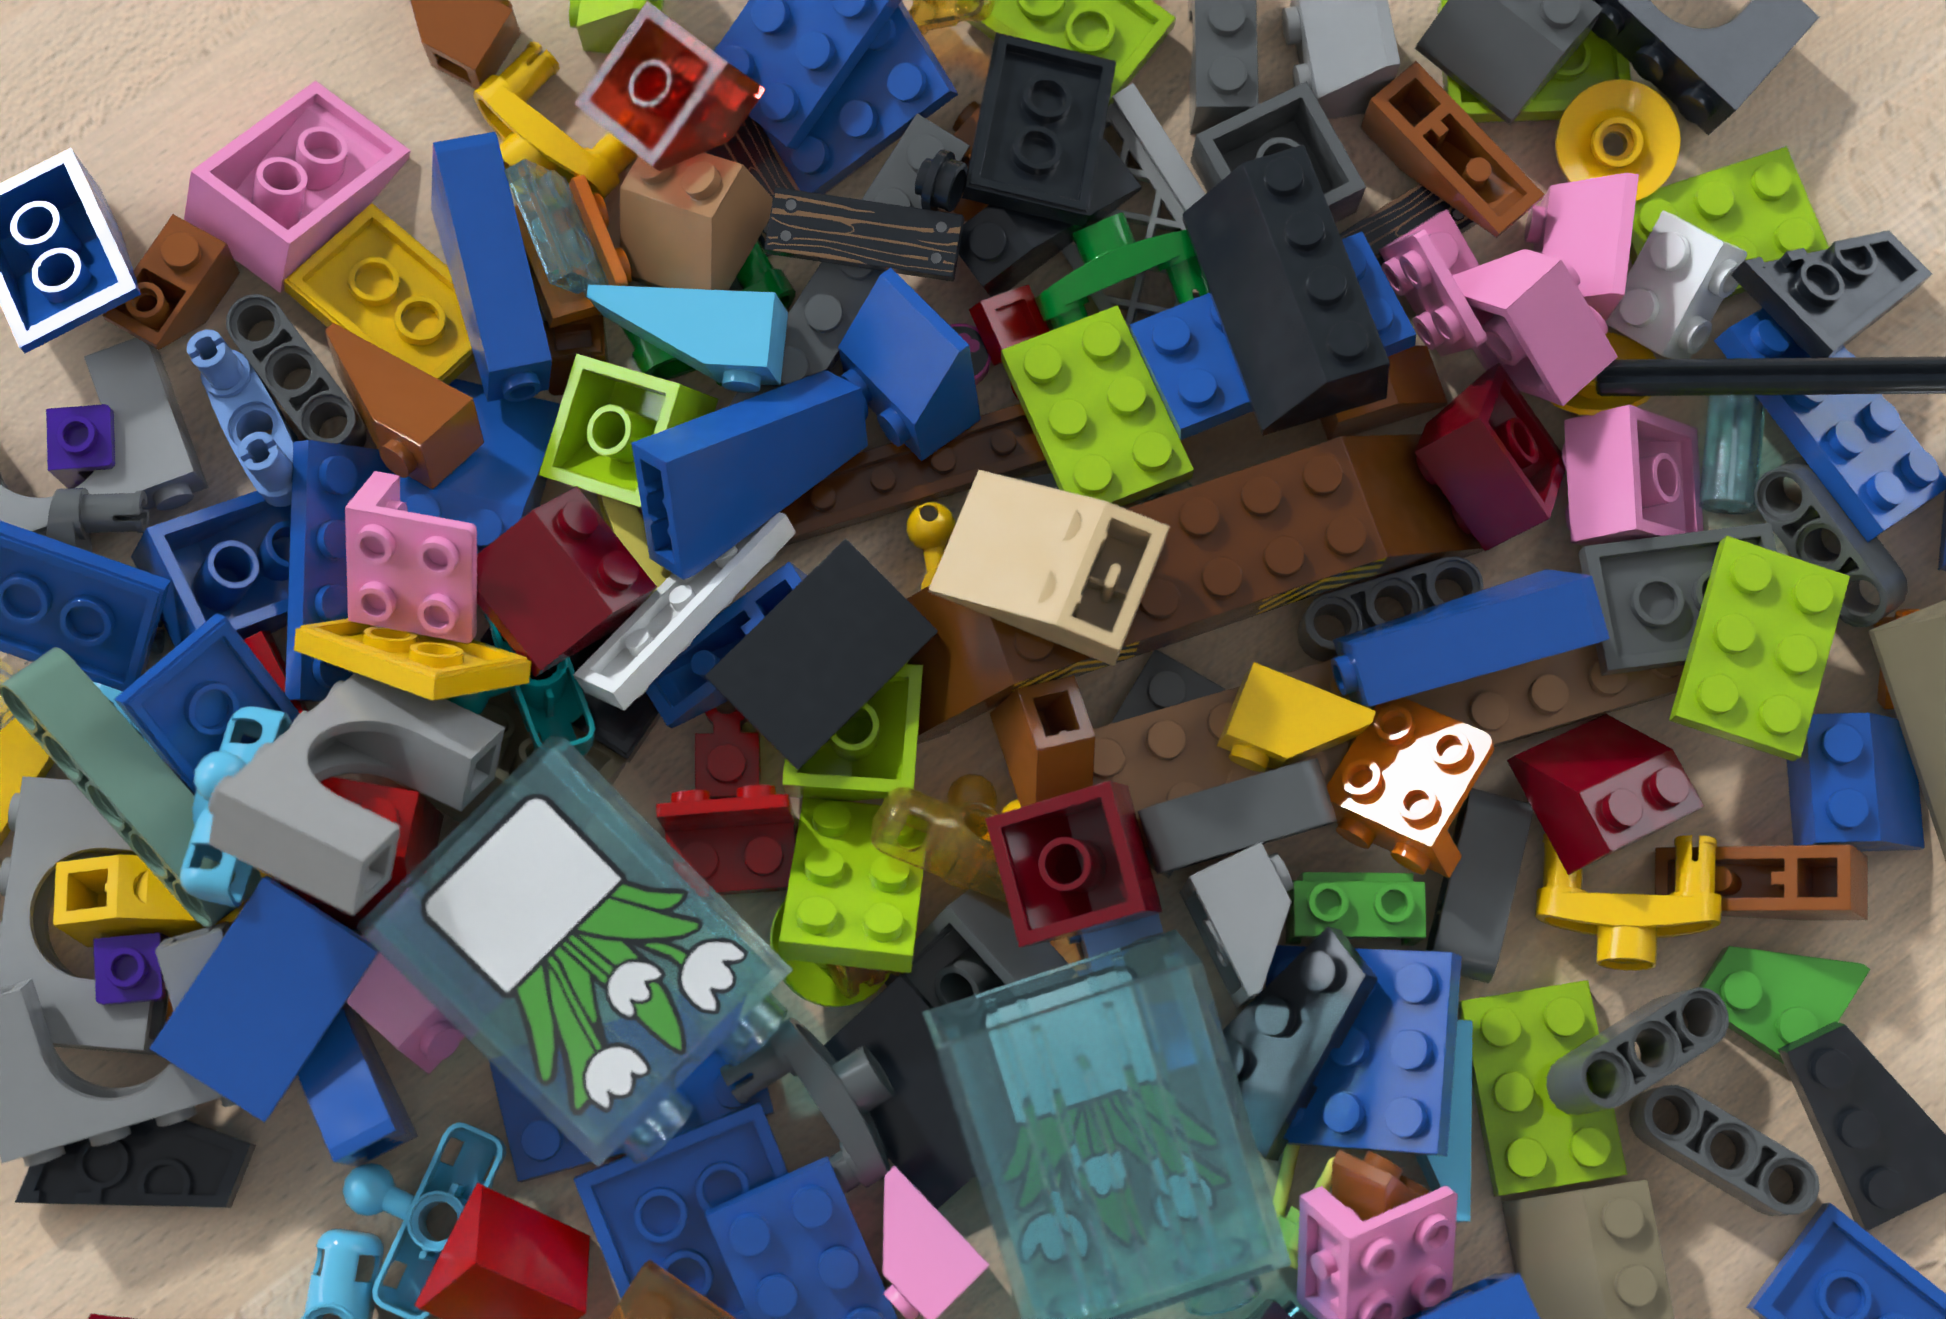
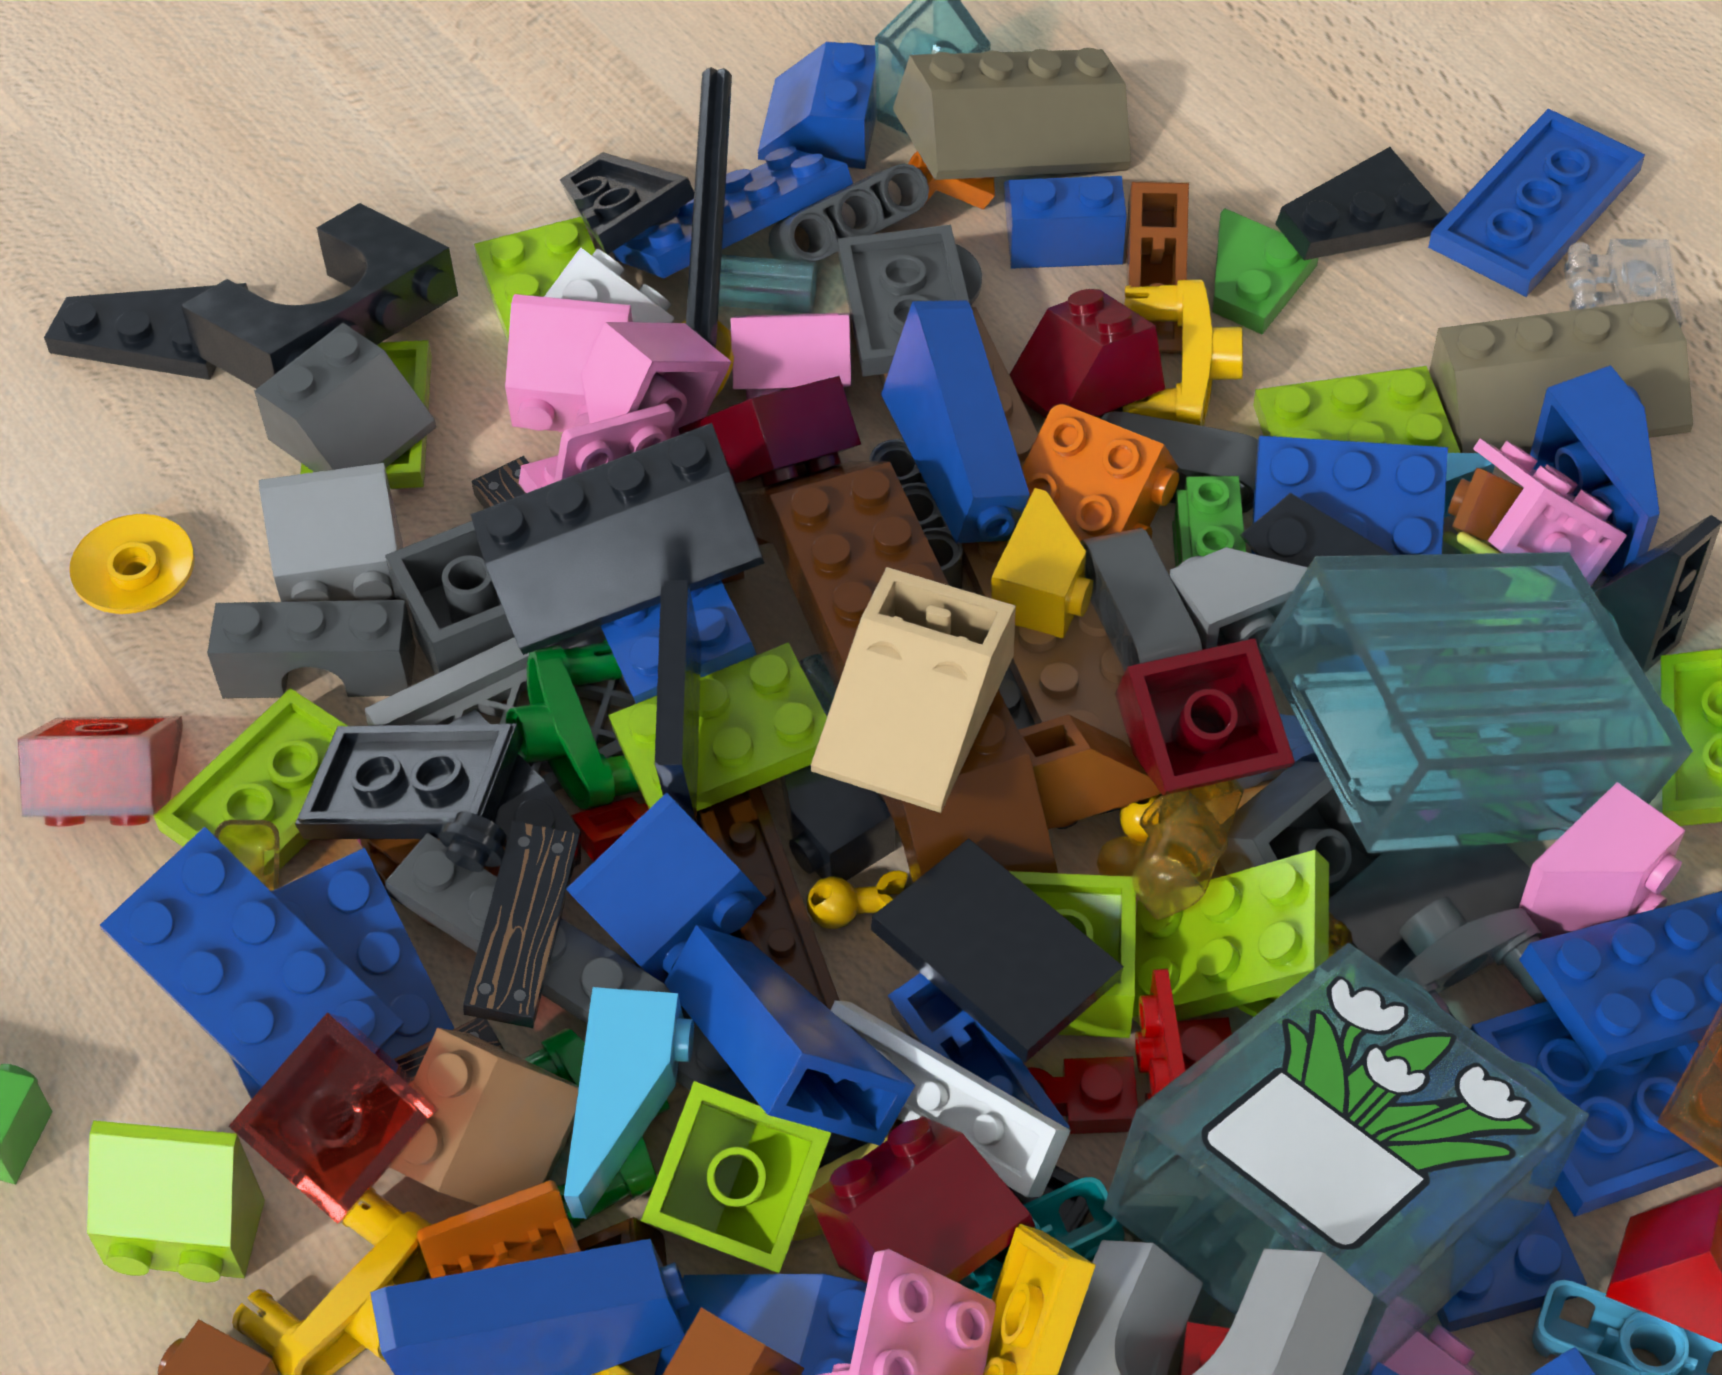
camera: 85 degrees left, 25 degrees down
(555, 227) = (518, 1227): clear light blue plate -> none
(1070, 351) = (678, 696): none -> black tile
(1448, 151) = (465, 461): dark orange slope -> none
(1612, 1055) = (1323, 341): dark grey beam -> none
(1634, 114) = (458, 348): yellow dish -> none
(1755, 1152) = (1396, 300): dark grey beam -> none
(1759, 648) = (956, 241): lime plate -> none

